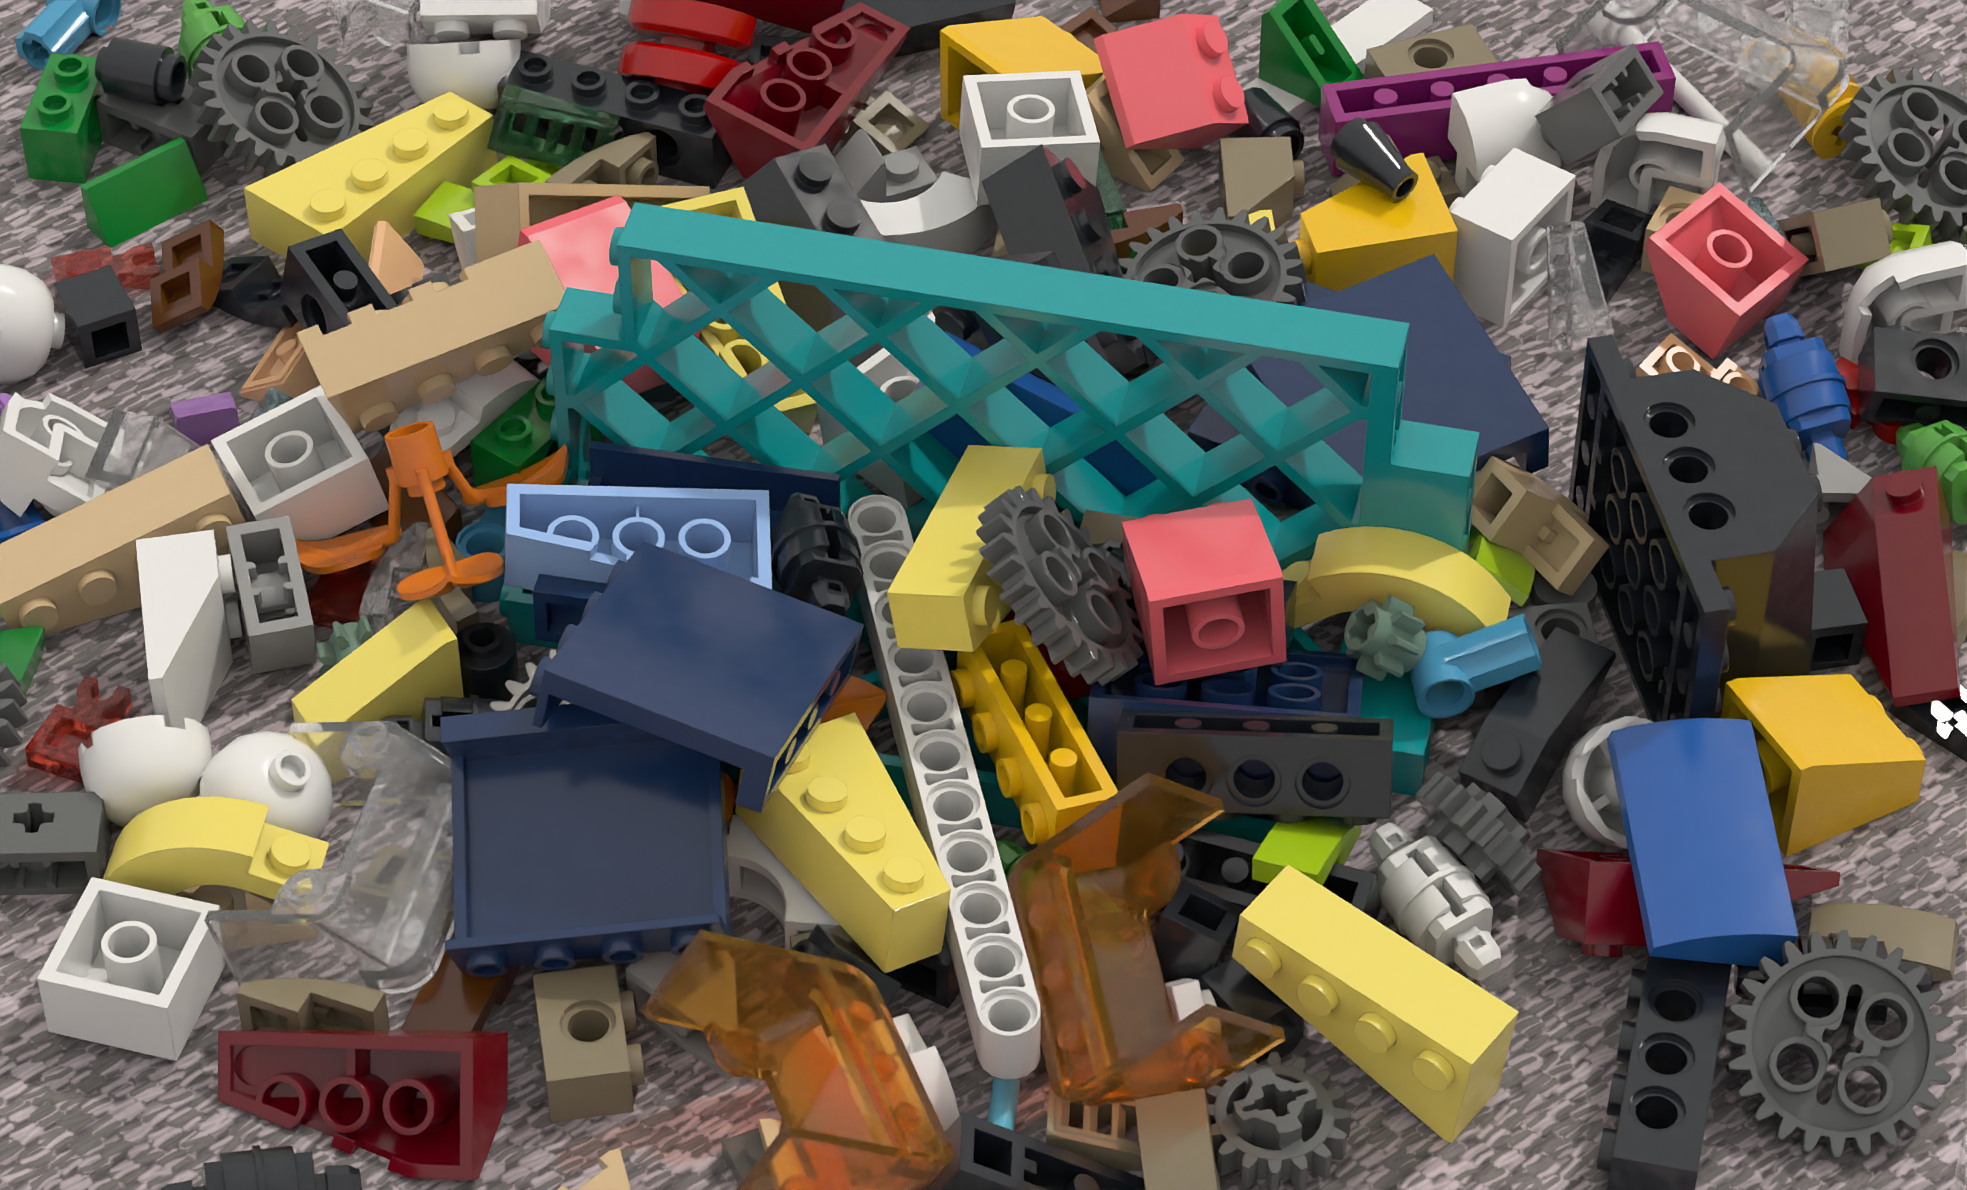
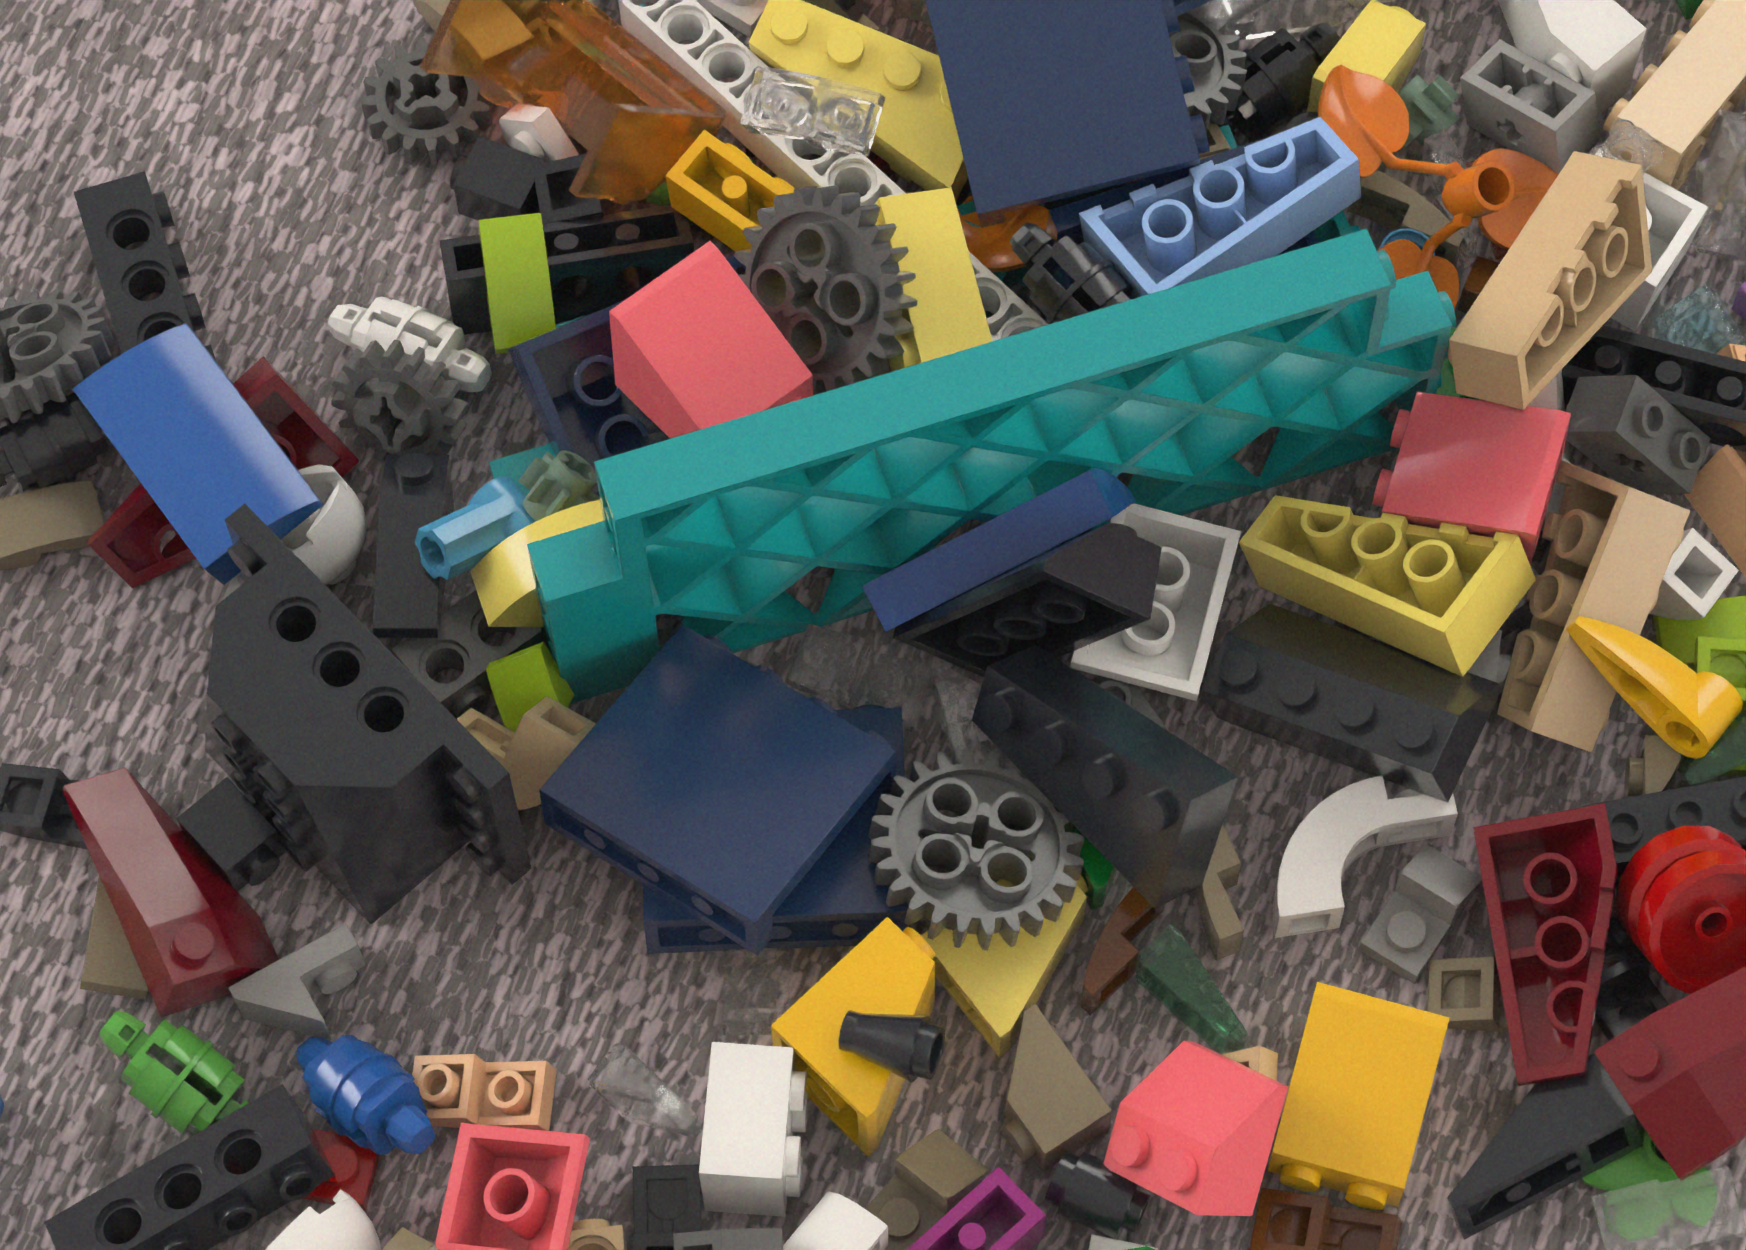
camera: 150 degrees right, 20 degrees up
(249, 468) = (1631, 138): none -> clear plate
(586, 144) = (1674, 700): none -> yellow piece
(949, 792) = (812, 109): none -> clear slope
(1018, 112) = (1268, 937): white brick -> none
(1286, 743) = (577, 283): black brick -> none
(1379, 1000) = (384, 179): light yellow wedge -> none
(1825, 754) = (147, 660): yellow slope -> none

